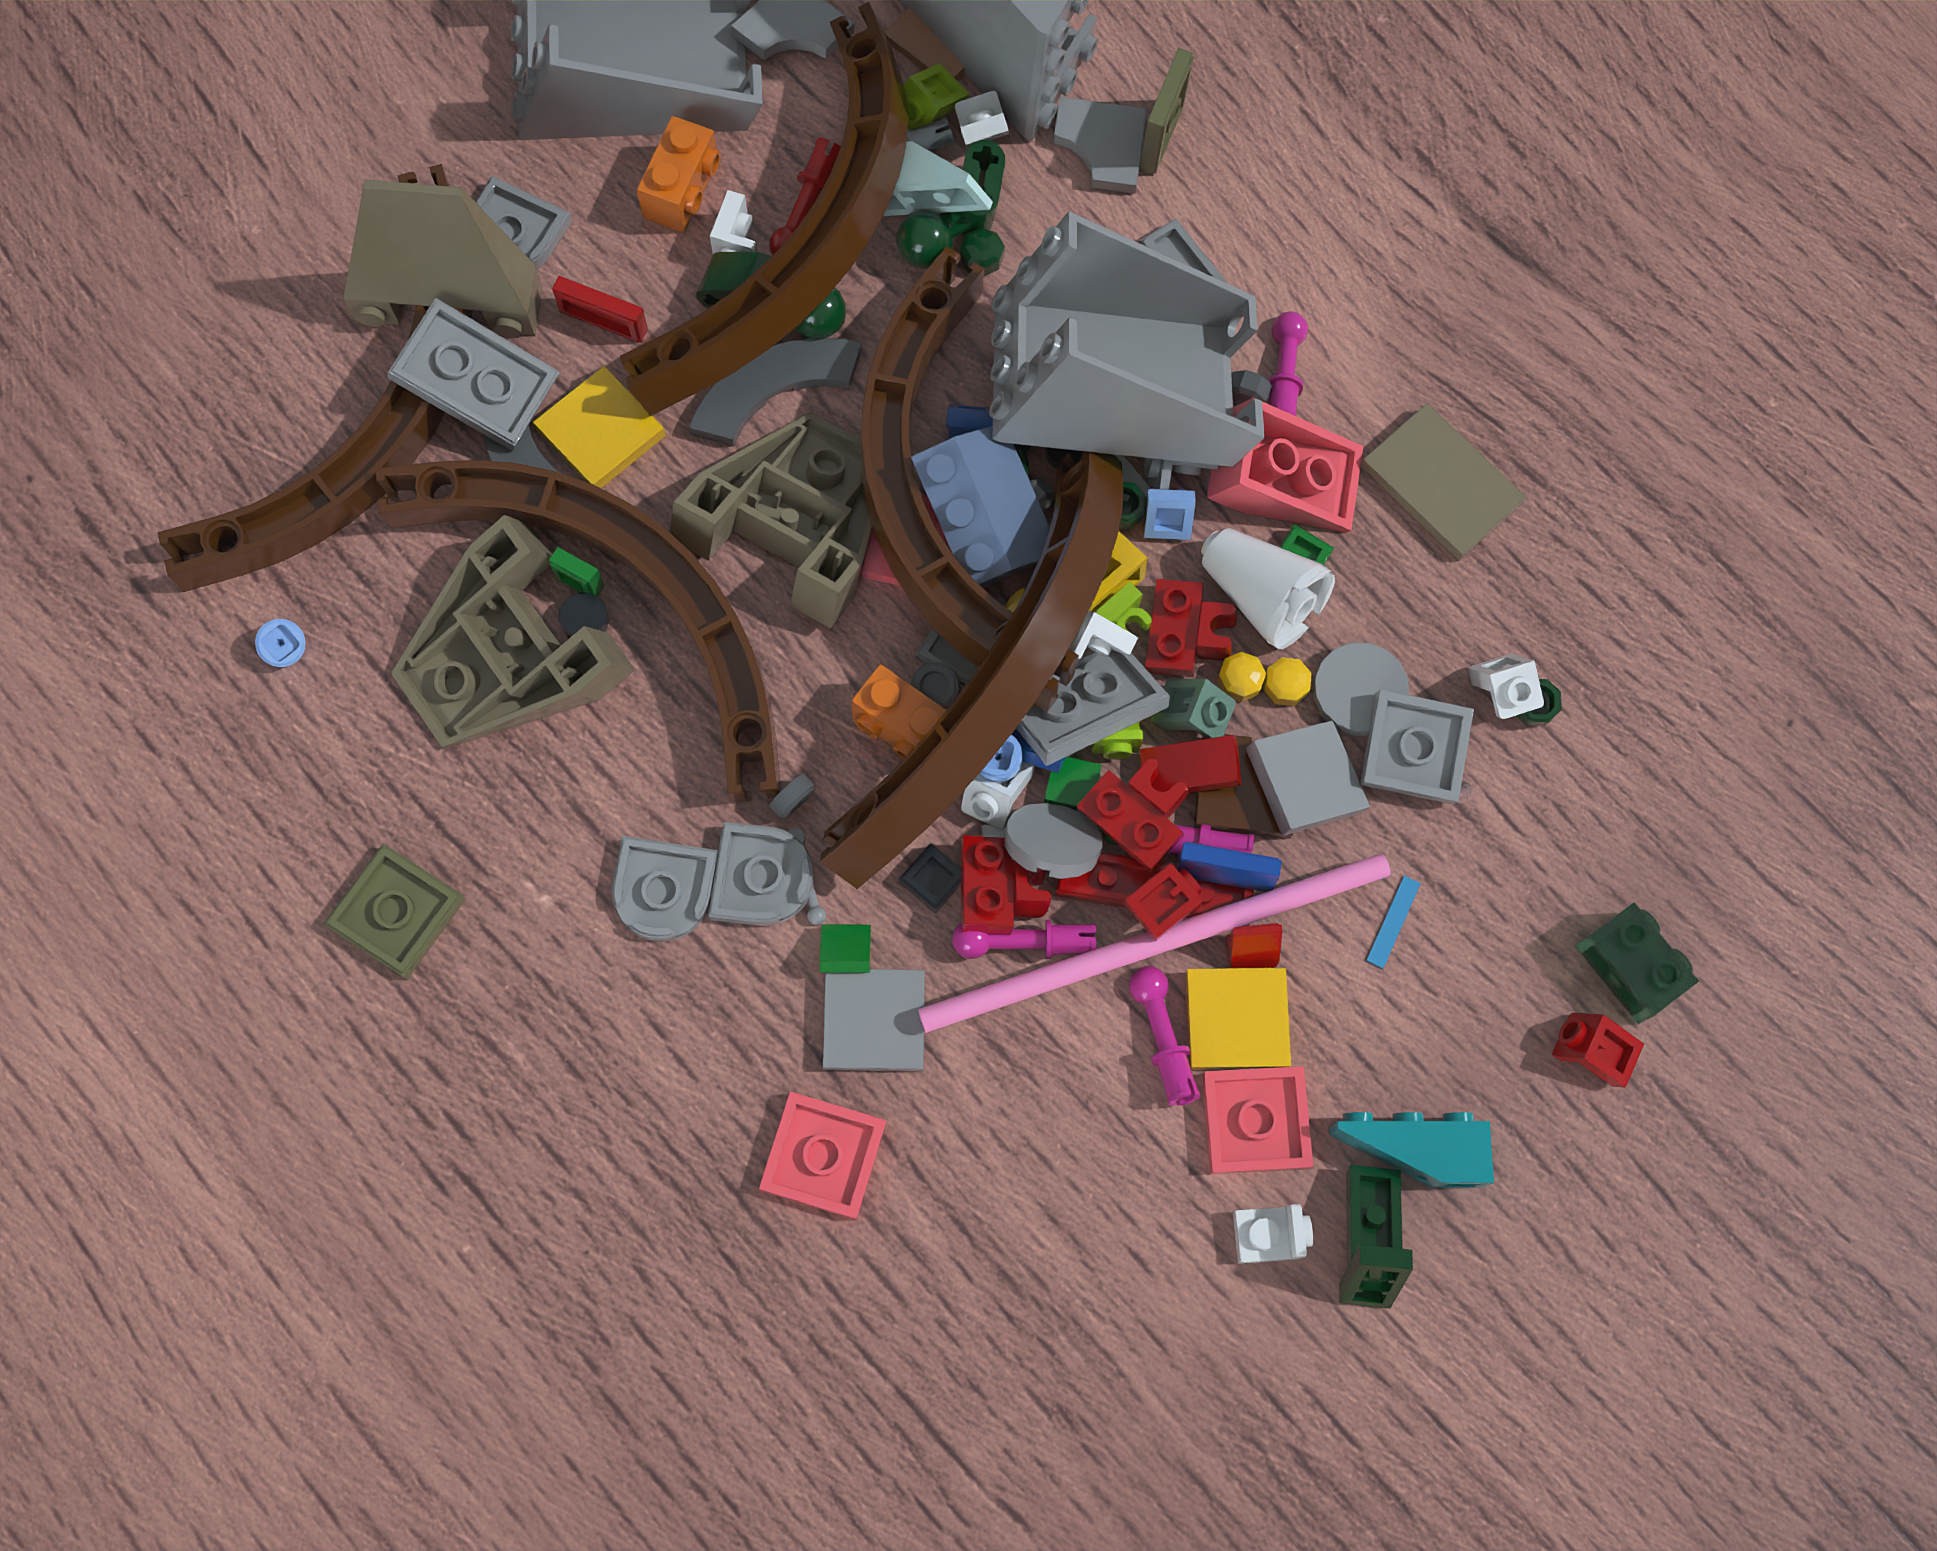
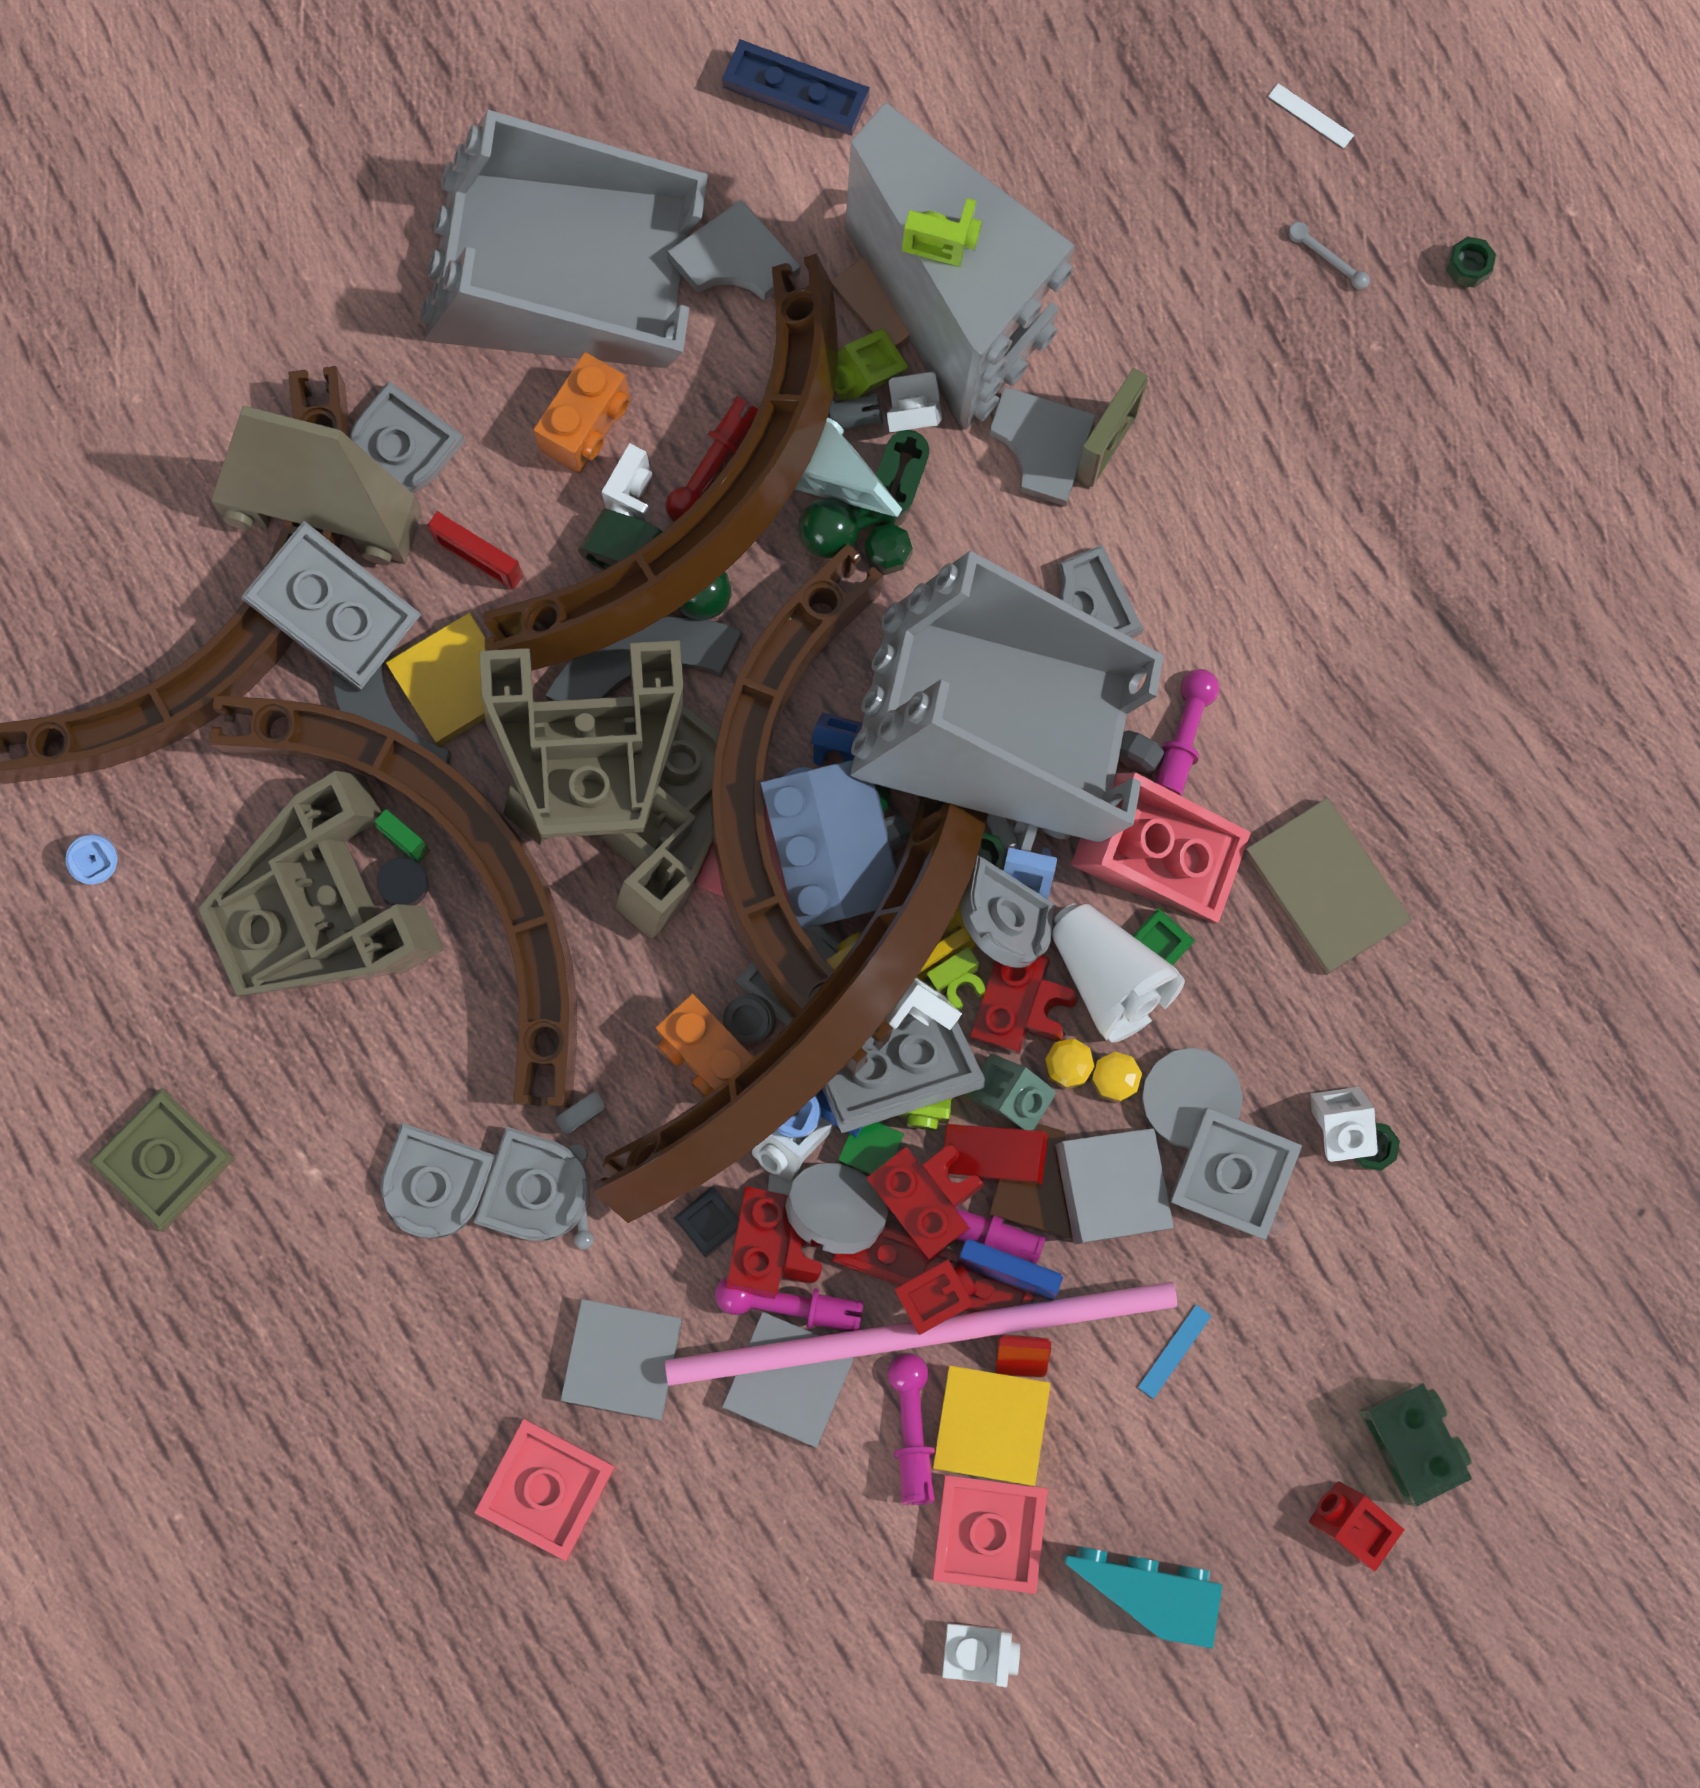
camera: 15 degrees right, 5 degrees up
(741, 466) = (585, 760): none -> dark tan wedge
(845, 948) = (605, 1281): green tile -> none
(1042, 1027) = (789, 1398): none -> light grey tile
(1159, 548) = (1006, 916): none -> light grey tile
(1374, 1238) = (1081, 1677): dark green bracket -> none

